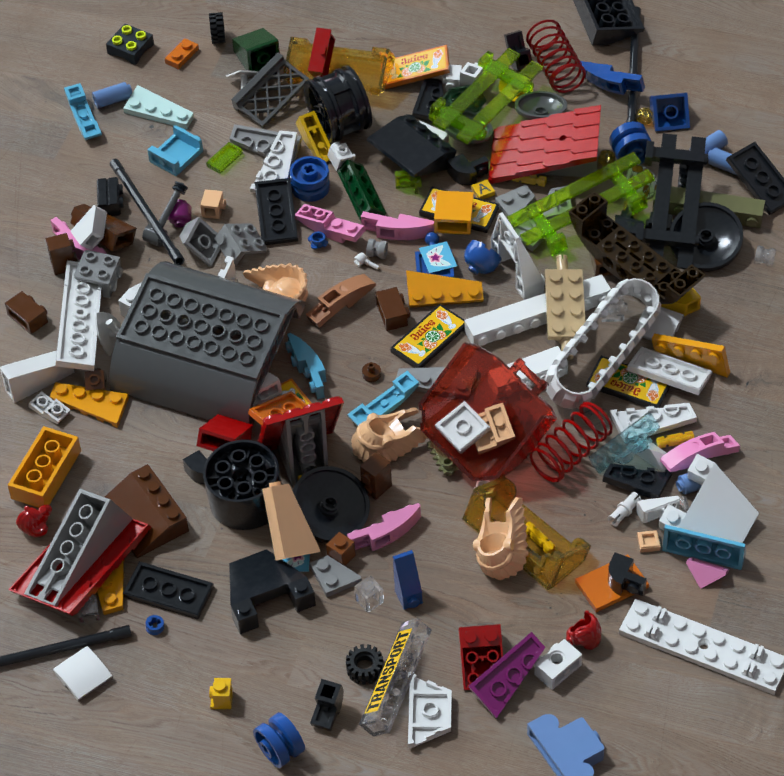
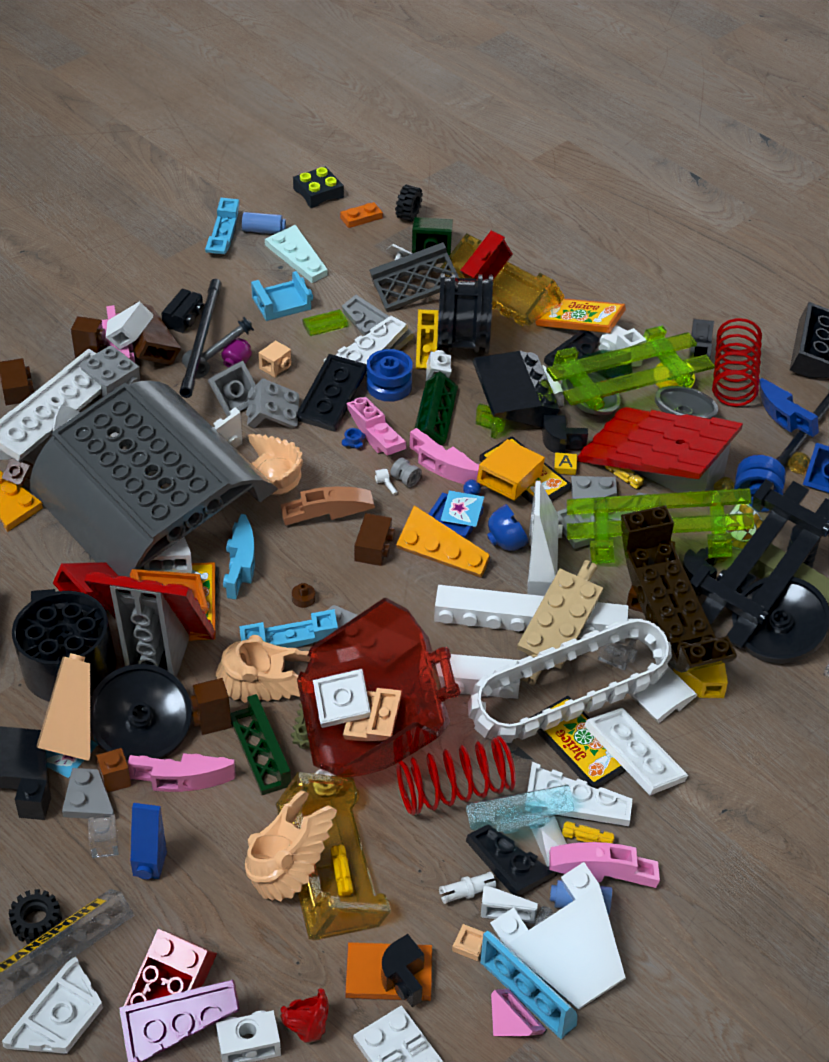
camera: 25 degrees right, 5 degrees down
(428, 484) = (269, 742): none -> dark green fence
(429, 337) = (400, 583): tile -> none
(694, 352) = (677, 743): light orange wing -> none

